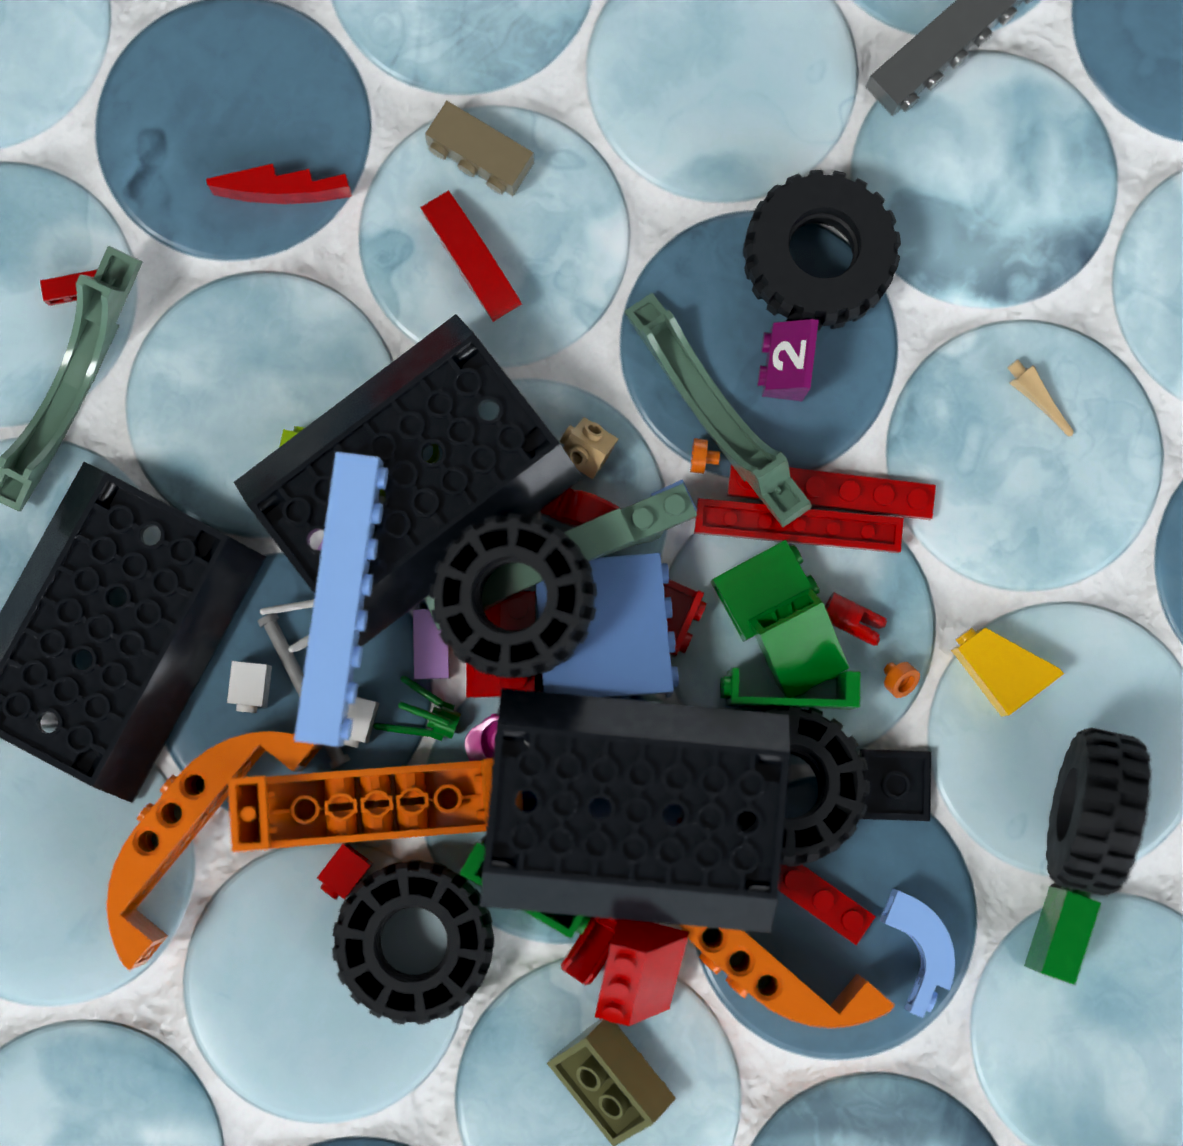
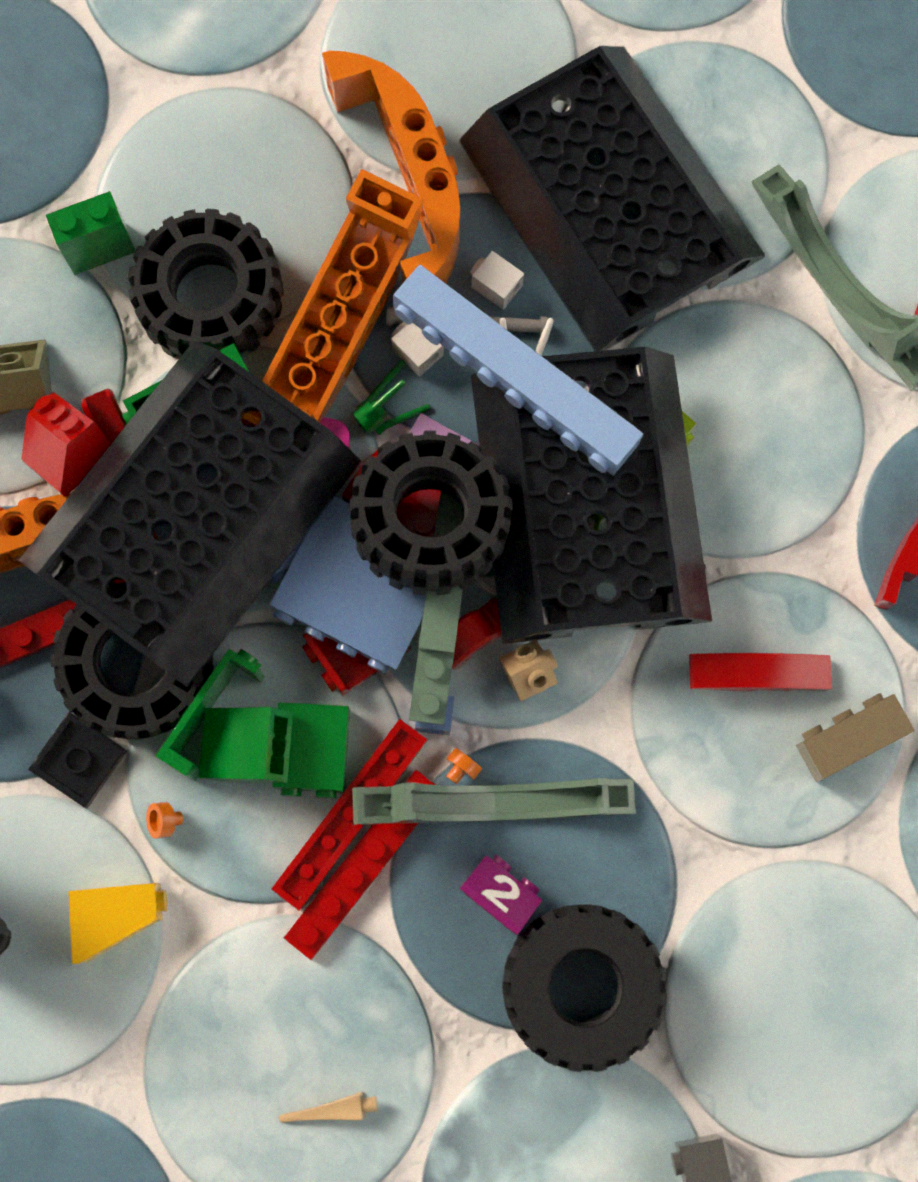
camera: 125 degrees right, 5 degrees down
(344, 872) = (297, 267): red brick -> none
(428, 1078) = (91, 233): none -> green brick
(847, 615) = (246, 807): red hinge -> none

